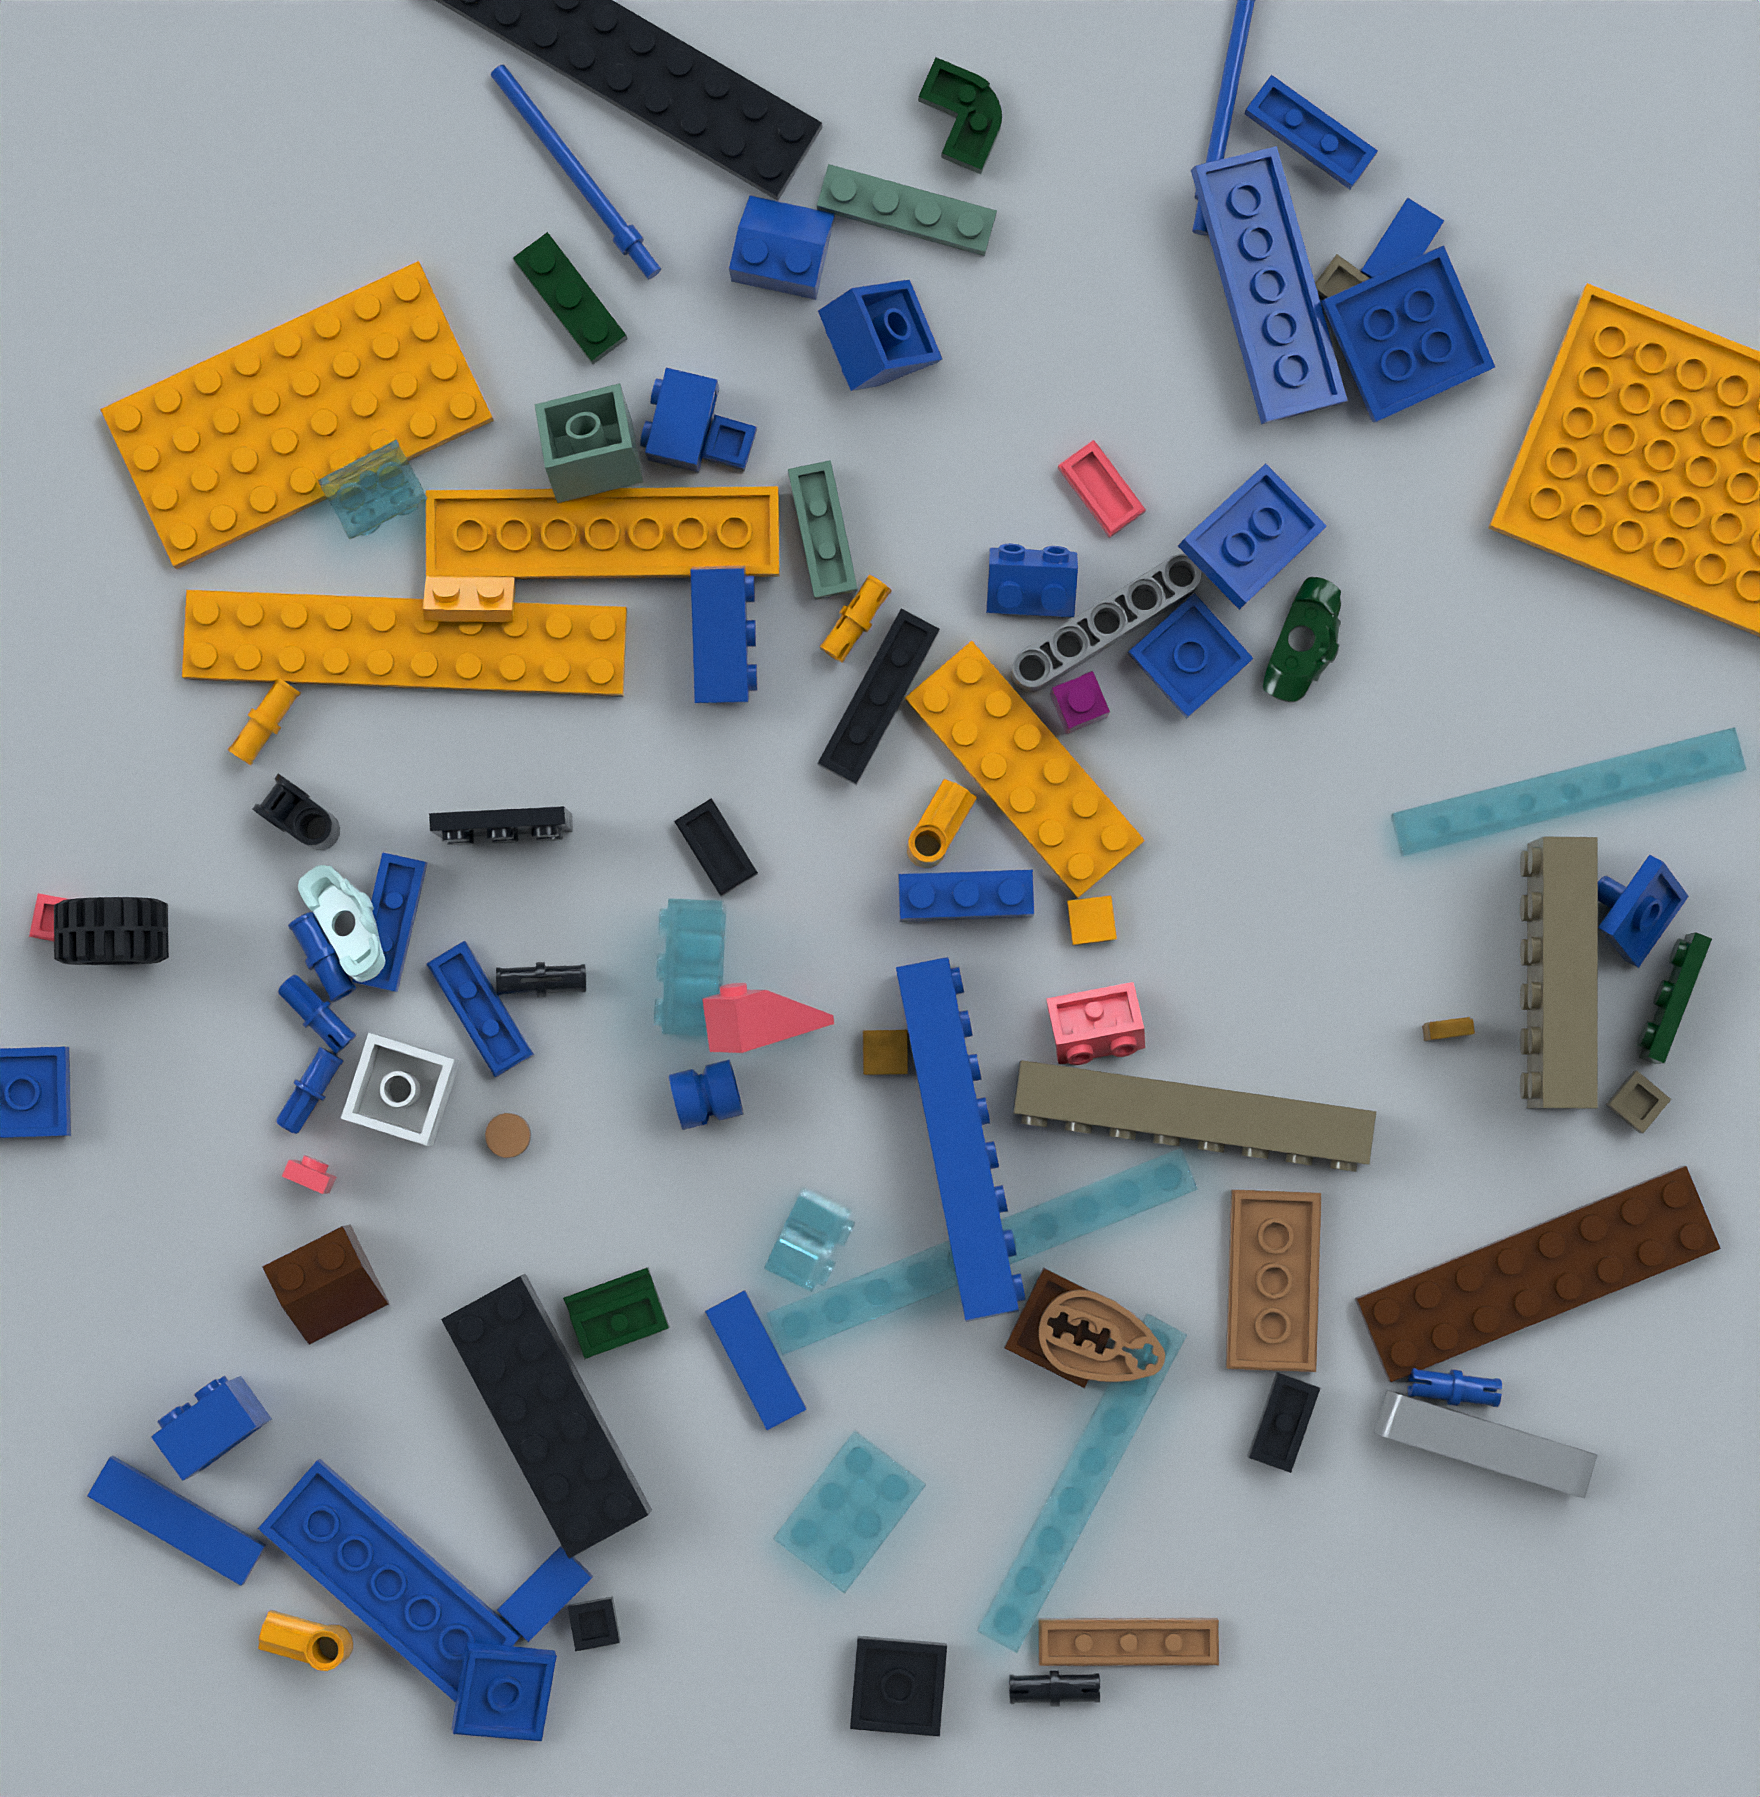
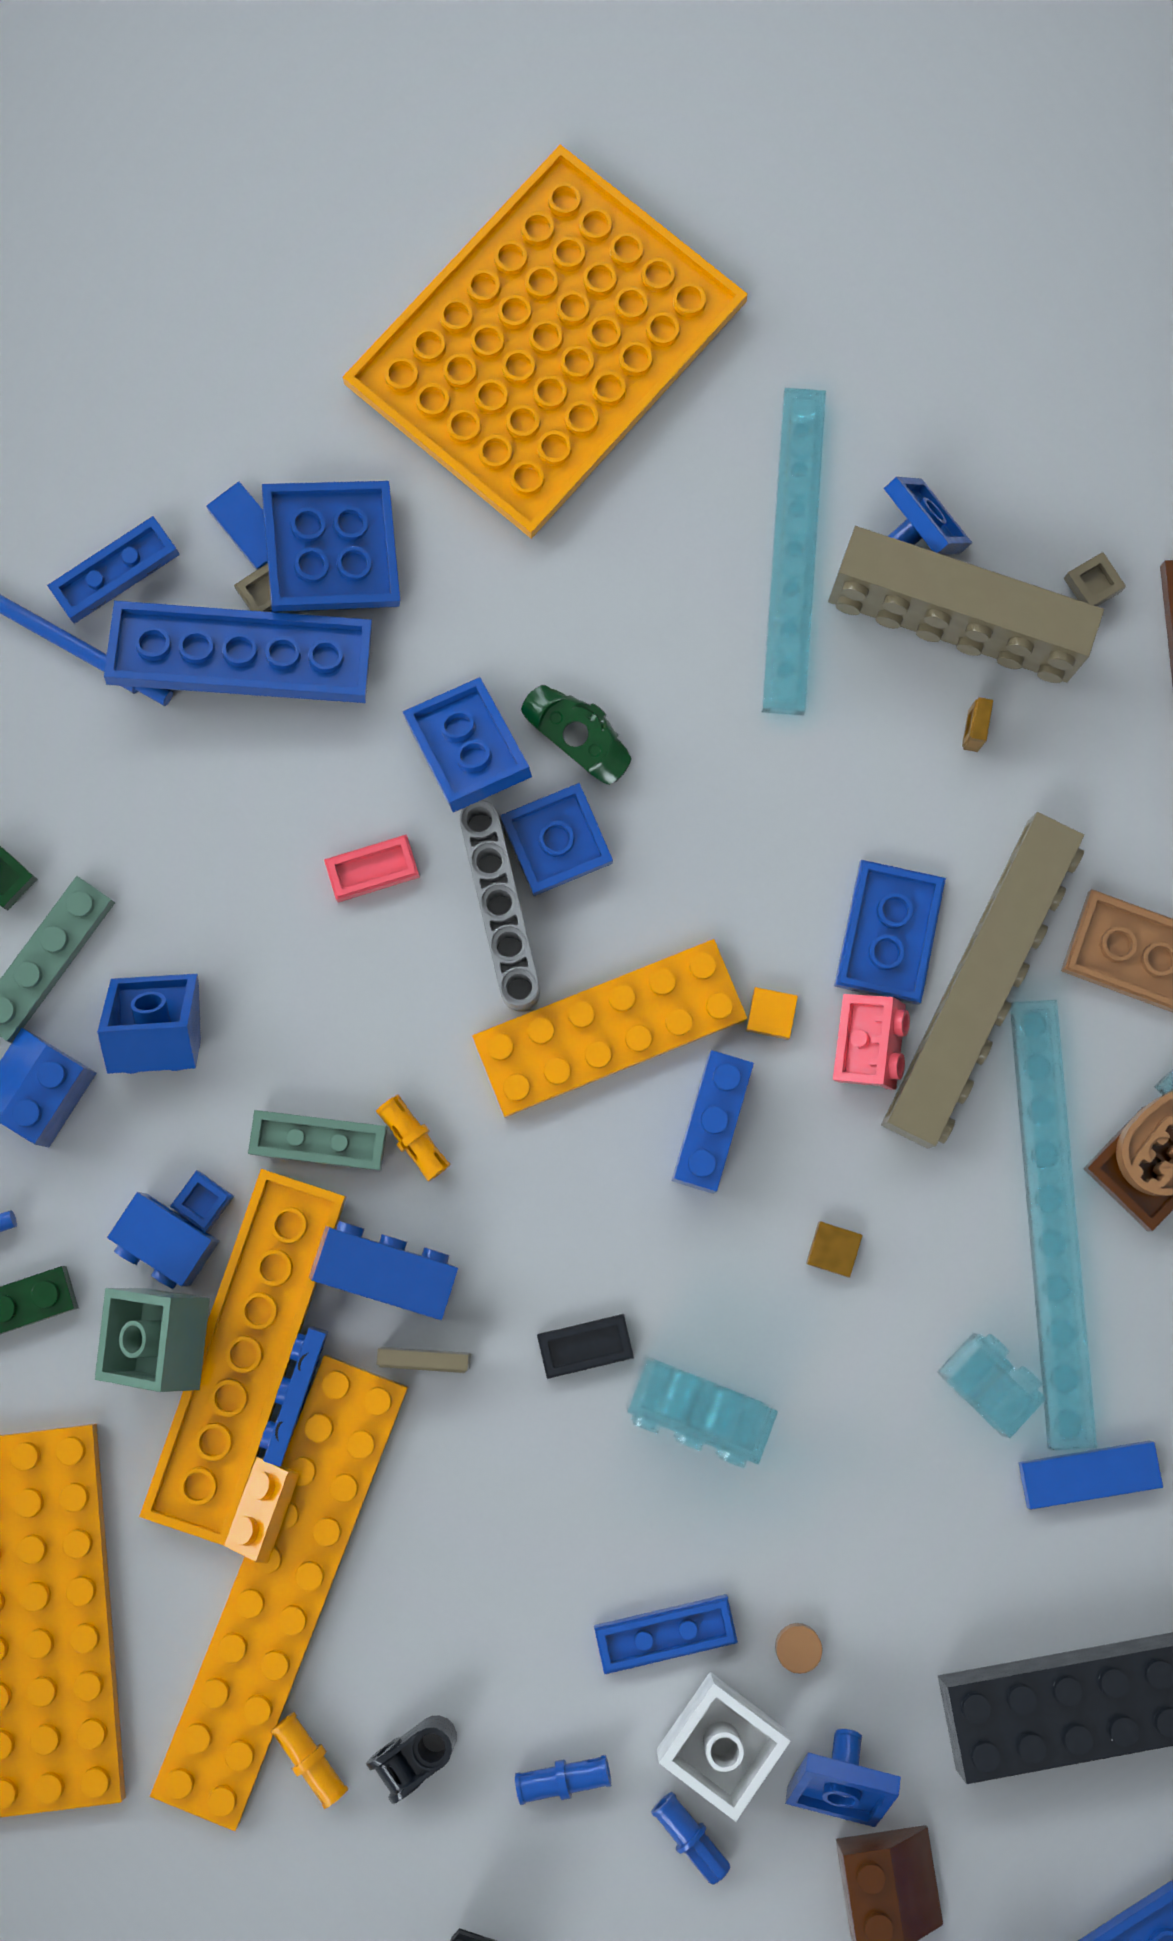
camera: 75 degrees left, 5 degrees down
(310, 1174) = (776, 1868): coral plate -> none
(316, 1013) = (617, 1805): blue axle -> none
(328, 897) = (506, 1751): light aqua piece -> none
(373, 490) = (119, 1570): clear light blue bracket -> none
(395, 908) = (552, 1698): blue plate -> none
(402, 1209) = (841, 1786): none -> blue tile
(501, 825) = (496, 1555): black plate -> none
(509, 979) = (648, 1595): black pin -> none
(581, 591) = (293, 1394): none -> blue plate
(616, 1313) = (1006, 1598): dark green plate -> none
(653, 700) = (423, 1359): none -> dark tan tile
(706, 1094) = (822, 1439): blue wheel -> none
(751, 1019) = (773, 1373): coral slope -> none
(878, 696) = (495, 1141): black plate -> none
(942, 821) = (632, 1121): light orange piece -> none
(958, 1140) = (947, 1208): blue brick -> none
(1032, 581) = (436, 960): blue bracket -> none
(1079, 702) = (566, 954): magenta brick -> none
(1211, 1009) = (890, 932): none -> blue tile
(1673, 997) = (1011, 519): dark green plate -> none

